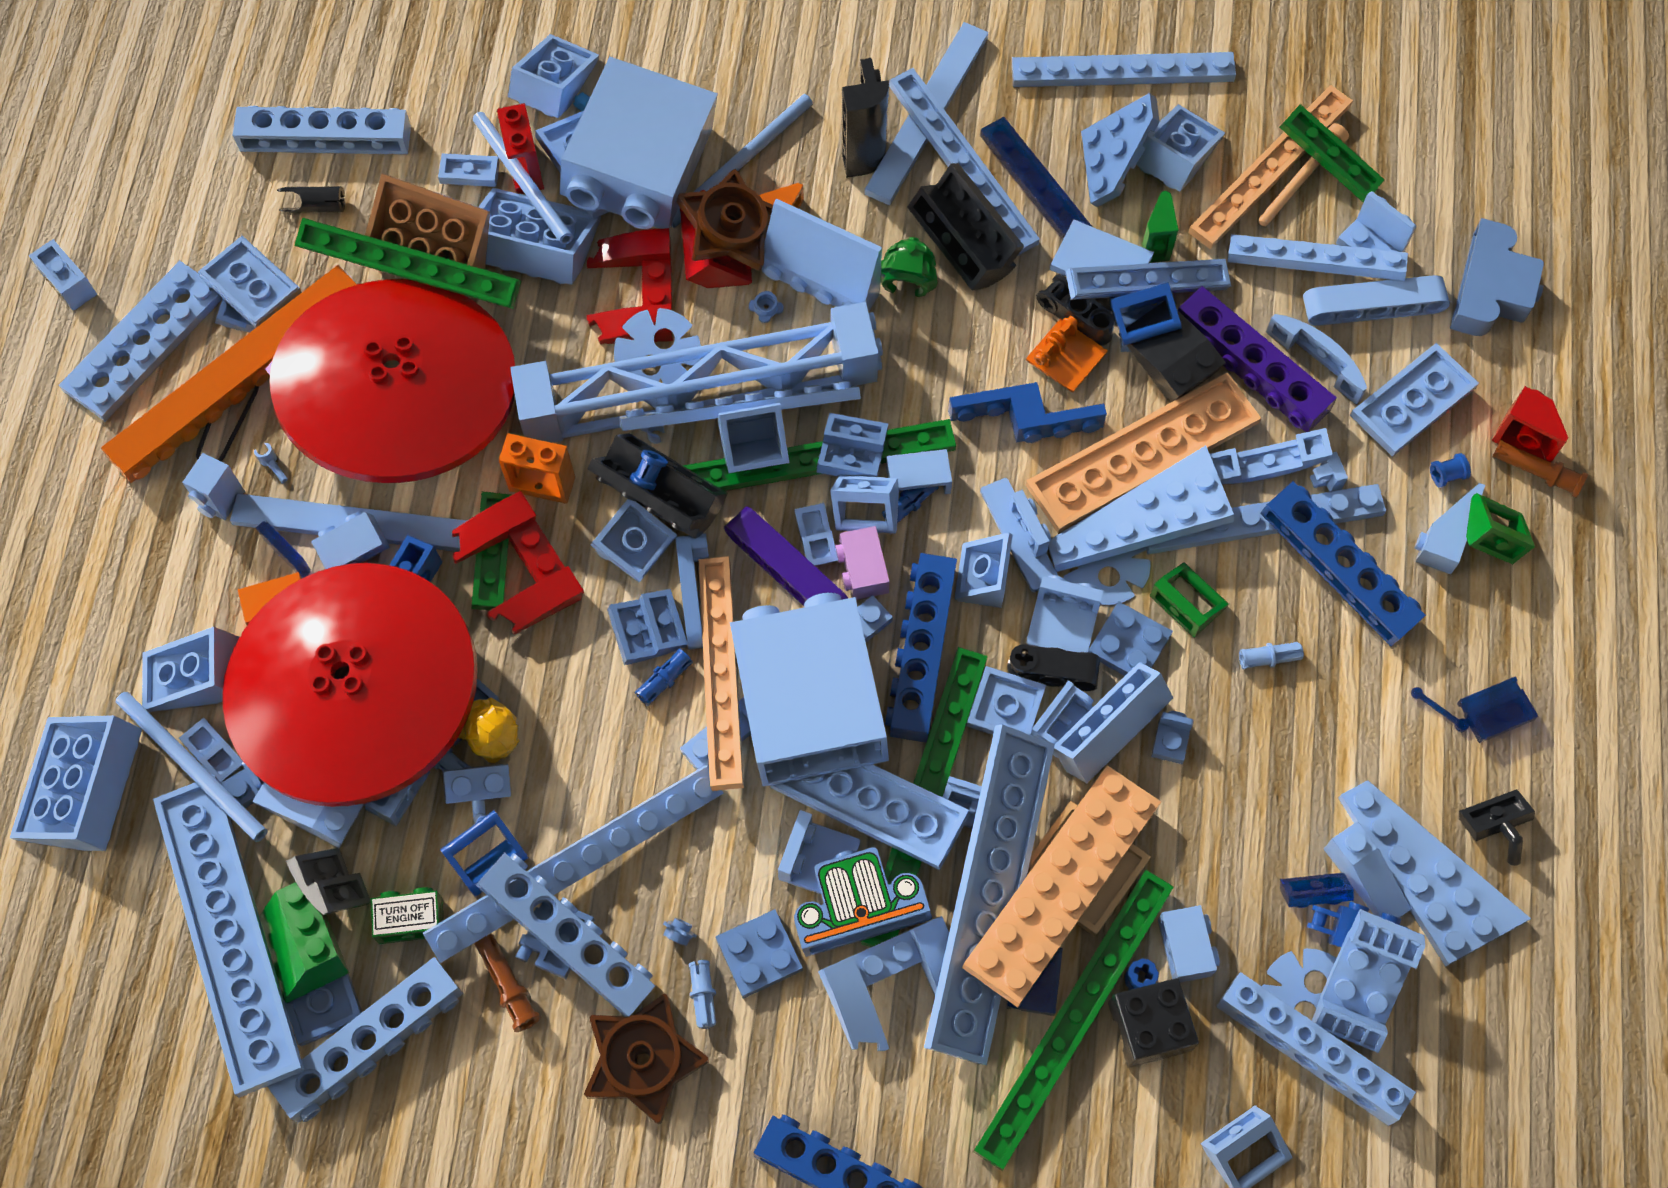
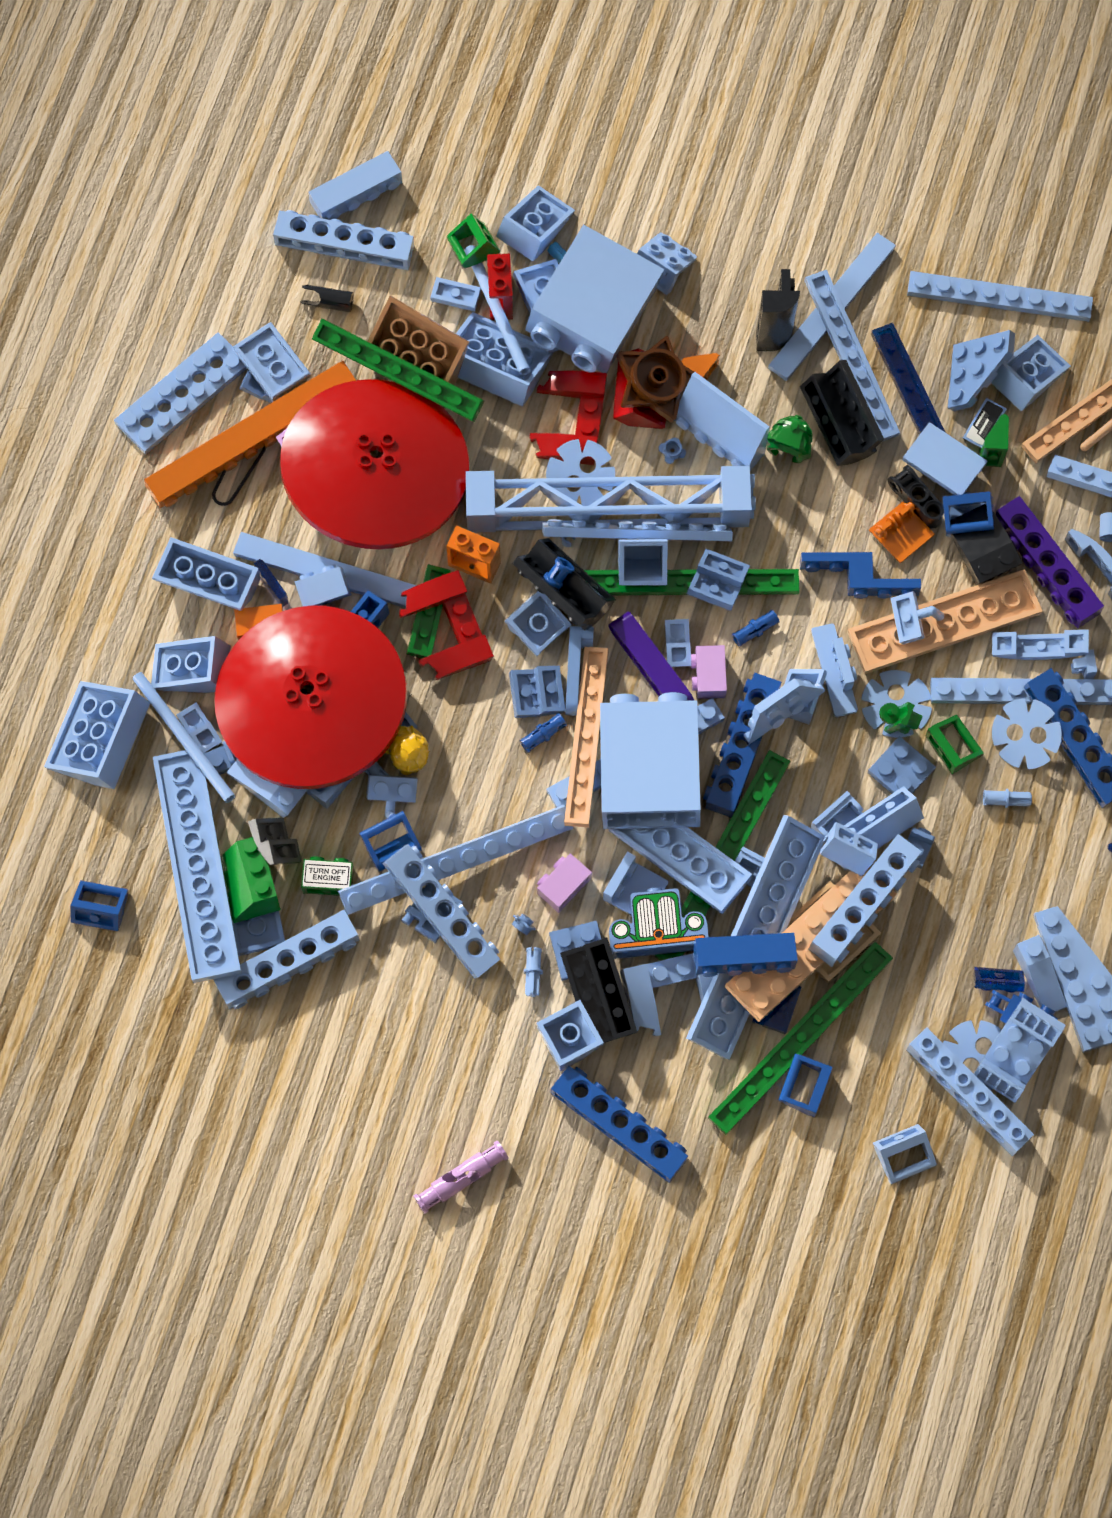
camera: 10 degrees right, 5 degrees up
(63, 274) = (127, 329): light blue panel -> none
(100, 1025) = (98, 914): none -> blue tile
(197, 551) = (207, 574): none -> light blue slope
(212, 487) = (225, 525): light blue brick -> none
(269, 459) = (268, 508): light blue hand -> none
(329, 68) = (356, 187): none -> light blue brick
(472, 93) = (472, 226): none -> green tile
(512, 994) = (395, 947): dark orange pin -> none
(623, 1040) = (487, 991): reddish brown plate -> none
(723, 866) = (563, 882): none -> lavender brick
(728, 85) = (669, 256): none -> light blue bracket
(754, 146) = (682, 315): light blue piece -> none
(766, 1072) = (569, 1035): none -> light blue slope
(795, 1007) = (600, 989): none -> black brick
(865, 490) = (721, 616): light blue tile -> none
(920, 470) = (766, 607): light blue panel -> none
(962, 586) = (780, 705): none -> light blue wing
(982, 918) = (745, 954): none -> blue brick
(1005, 701) = (797, 798): light blue plate -> none
(1055, 666) = (840, 778): black piece -> none
(1064, 615) = (855, 741): light blue bracket -> none
(1085, 886) = (898, 851): none -> light blue brick
(1089, 754) = (849, 849): none -> light blue hinge
(1100, 451) = (909, 617): none -> light blue plate
(1114, 1081) = (824, 1073): none -> blue tile
(1116, 577) = (900, 718): none -> green hips
(1130, 278) = (975, 481): light blue tile -> none
(1137, 212) = (984, 422): none -> slope
(1144, 965) = (858, 1024): blue bush -> none
(1153, 1022) = (856, 1051): black piece -> none
(1164, 508) = (948, 670): light blue wing -> none
(1188, 943) = (894, 1001): light blue brick -> none
(1264, 547) = (1036, 717): none -> light blue piece

